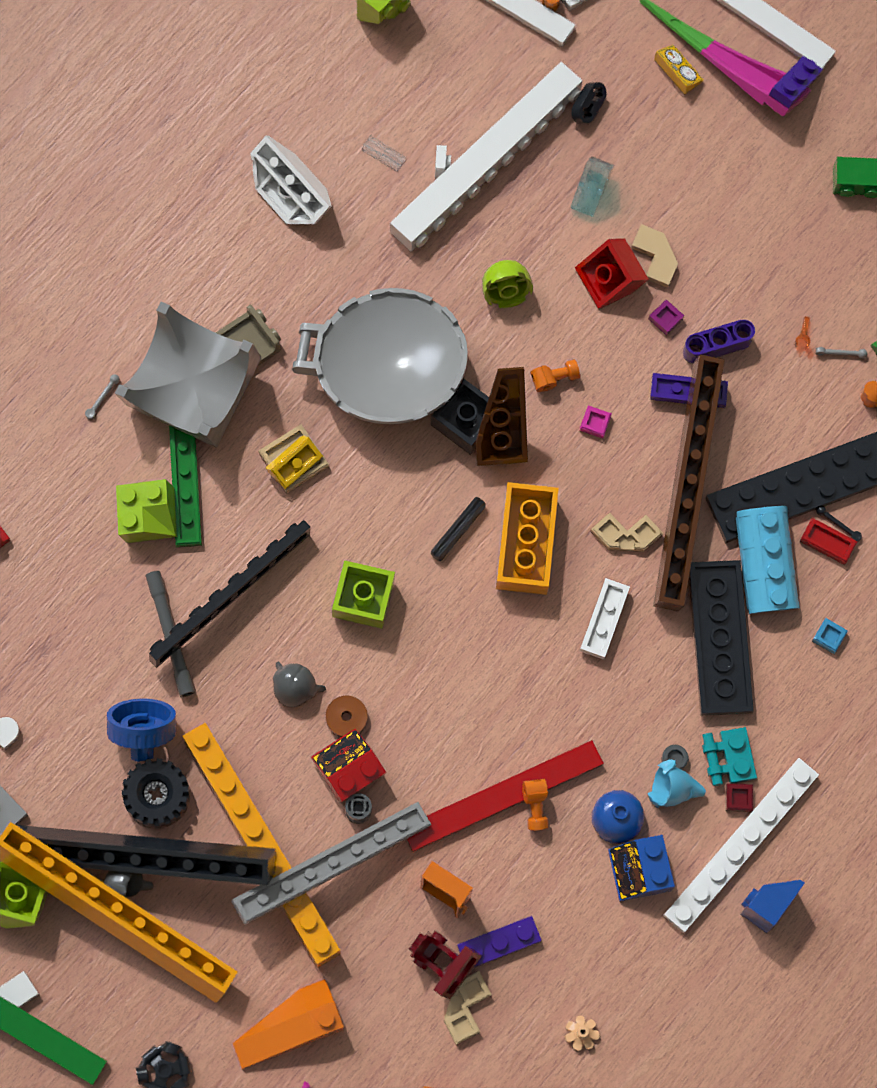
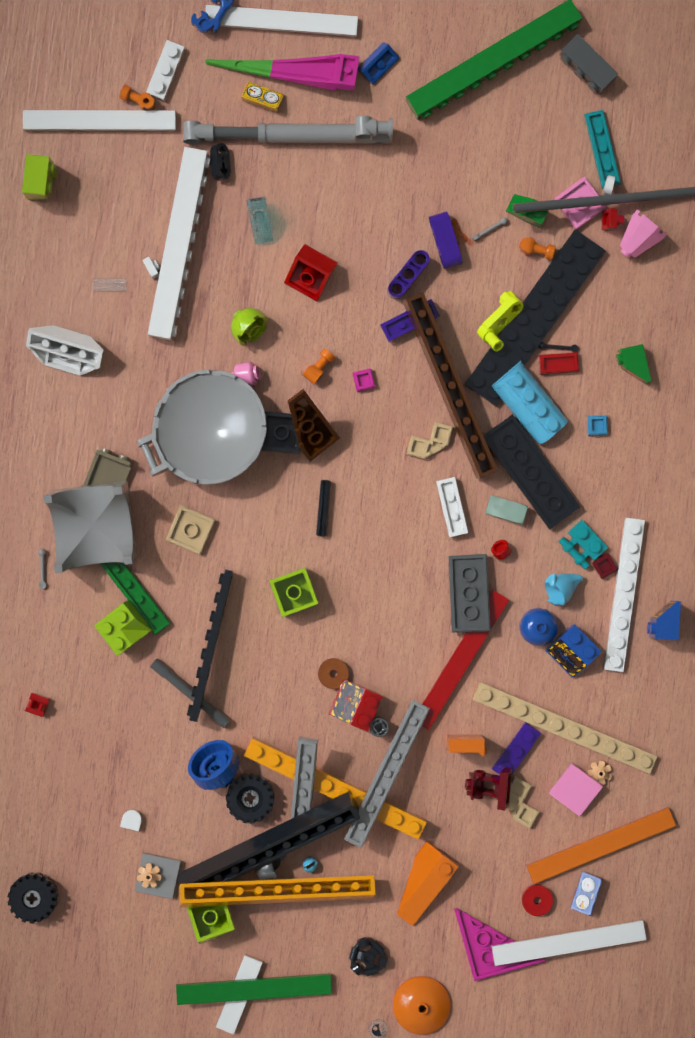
camera: 30 degrees left, 15 degrees up
(172, 922) = (309, 860): none -> medium azure hinge
(234, 803) = (304, 775): none -> light grey tile
(294, 461) = (192, 533): yellow slope -> none
(294, 684) = (288, 675): dark grey hair -> none
(474, 331) = (248, 372): none -> bright pink head
(527, 538) = (371, 488): light orange brick -> none
(534, 794) = (481, 649): orange leg -> none
(540, 1032) = (575, 789): none -> bright pink tile
(562, 726) = (469, 593): none -> dark grey plate
(574, 954) = (564, 727): none -> tan plate
(631, 702) = (501, 549): none -> red tile
(656, 245) = (326, 233): tan tile -> none
(665, 662) = (506, 509): none -> sand green slope
(666, 317) = (364, 279): magenta tile -> none
(677, 753) = (550, 566): dark grey tile -> none
(768, 165) = (362, 132): none -> light grey piece
(784, 331) = (445, 240): none -> dark purple beam
(796, 81) = (346, 59): dark purple plate -> none
(808, 445) = (509, 309): none -> neon yellow beam
(827, 111) = (378, 63): none -> blue slope

